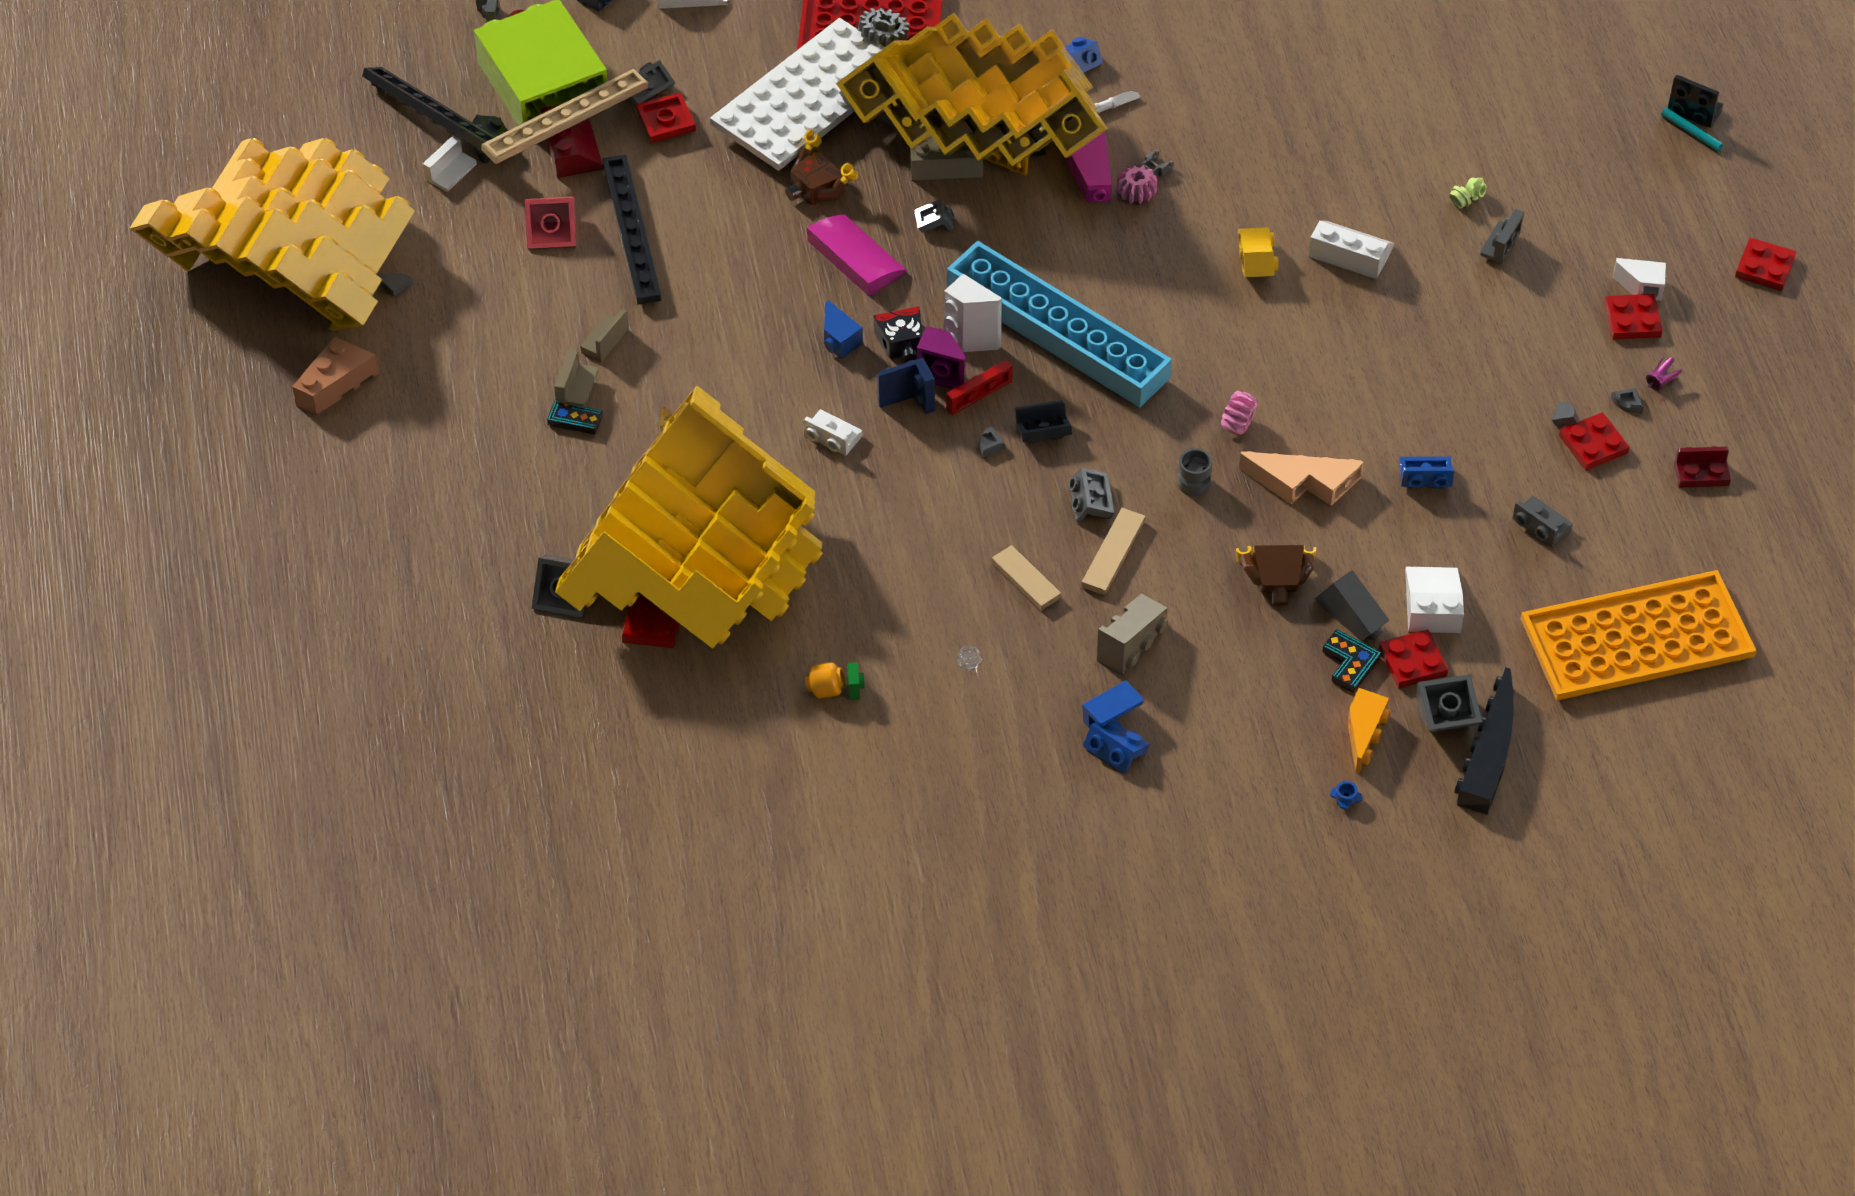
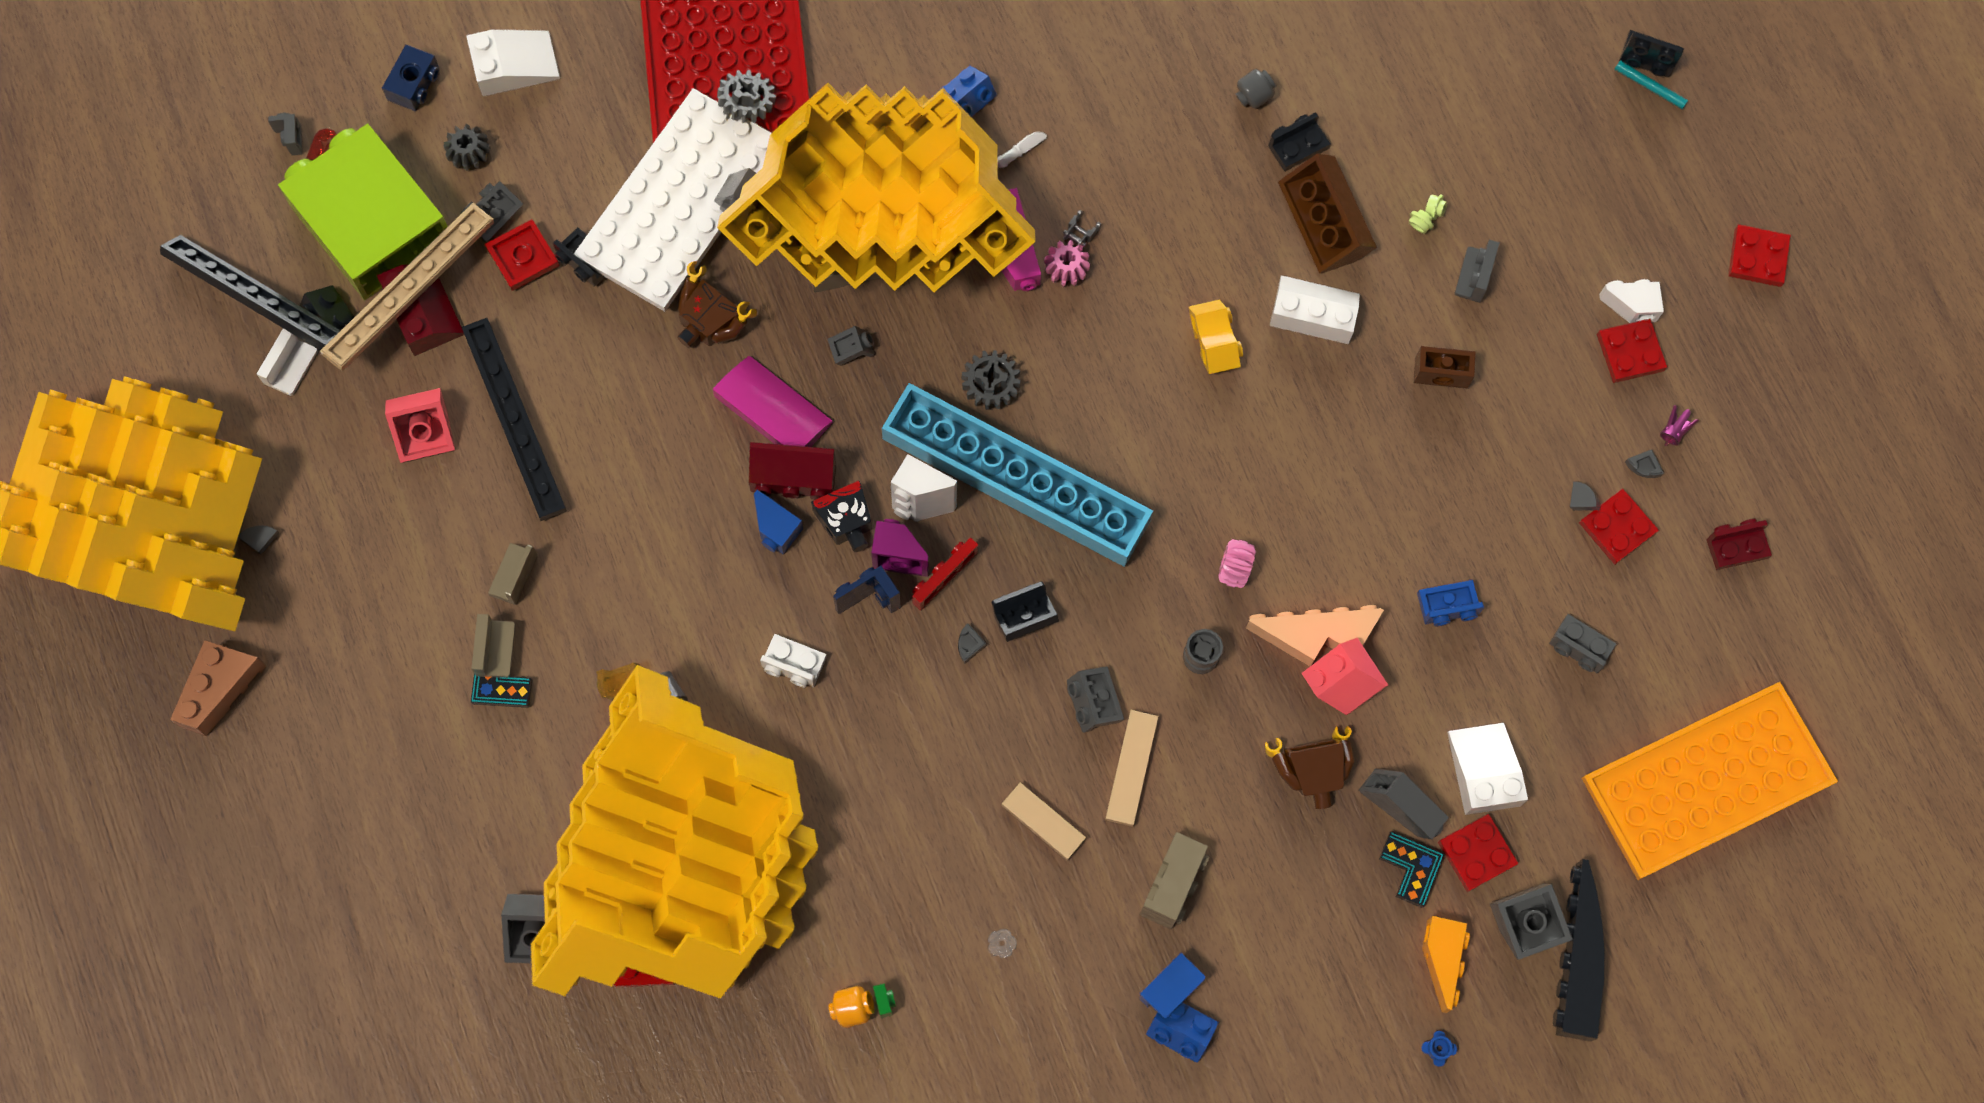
camera: 15 degrees left, 20 degrees up
(637, 37) = (466, 147): none -> dark grey gear
(704, 120) = (565, 254): none -> black bracket
(862, 289) = (791, 470): none -> dark red slope
(1051, 257) = (1003, 381): none -> dark grey gear
(1317, 503) = (1345, 677): none -> coral slope
(1332, 84) = (1255, 88): none -> dark grey head
(1362, 127) = (1298, 141): none -> black bracket
(1376, 179) = (1327, 213): none -> reddish brown slope
(1457, 299) = (1444, 367): none -> reddish brown brick

